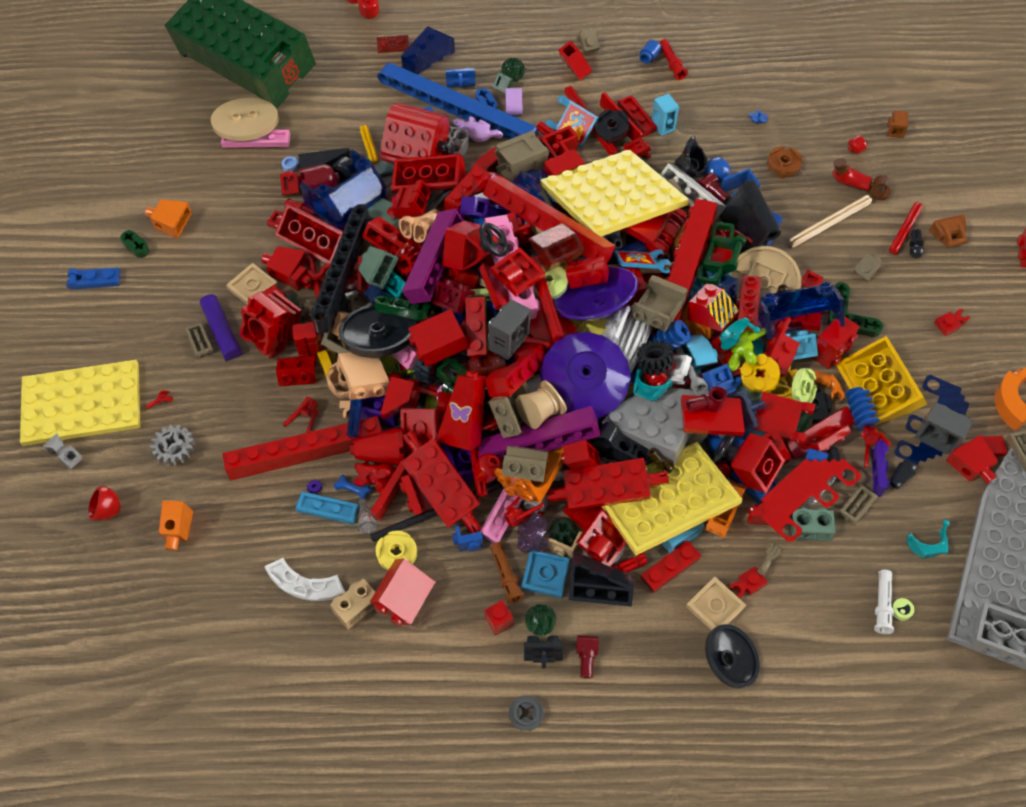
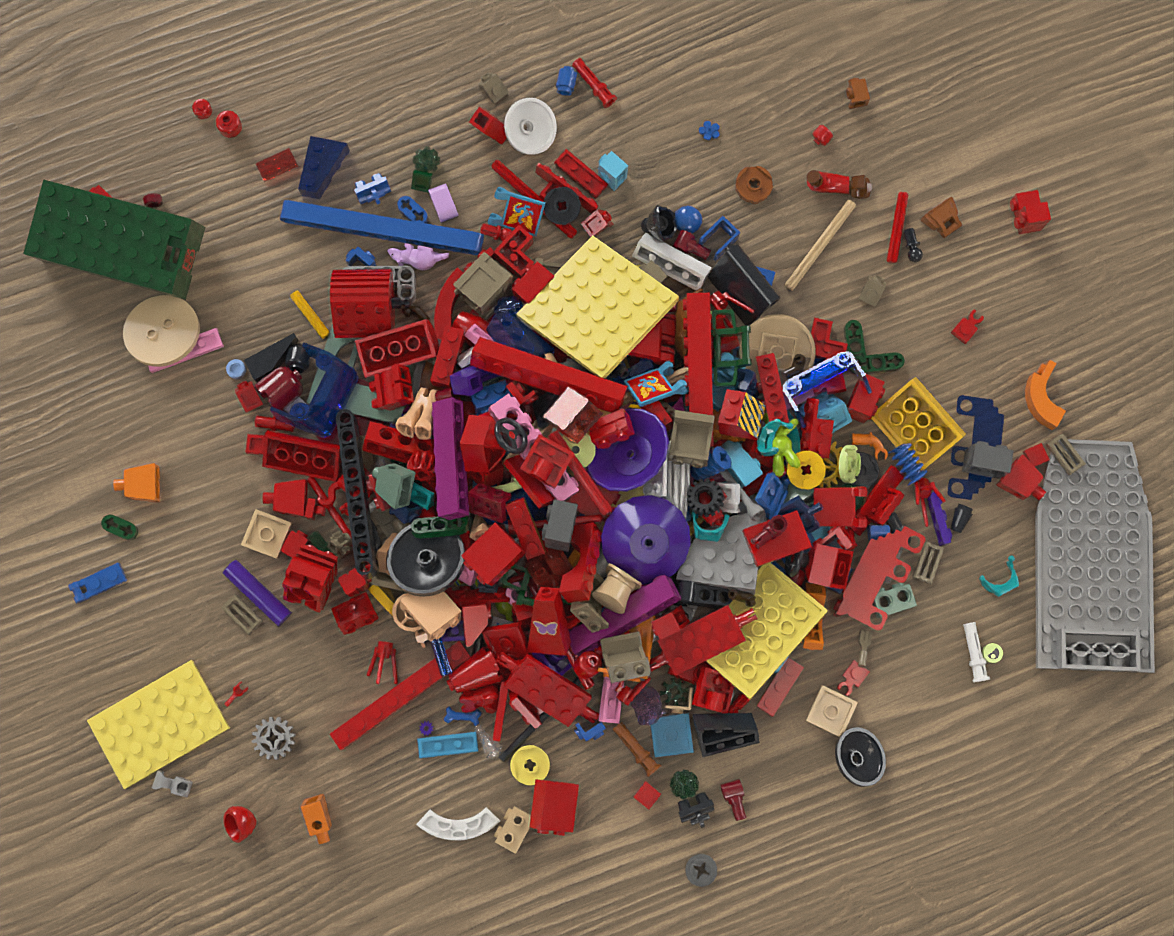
camera: 25 degrees left, 20 degrees up
(613, 63) = (539, 122): none -> white dish

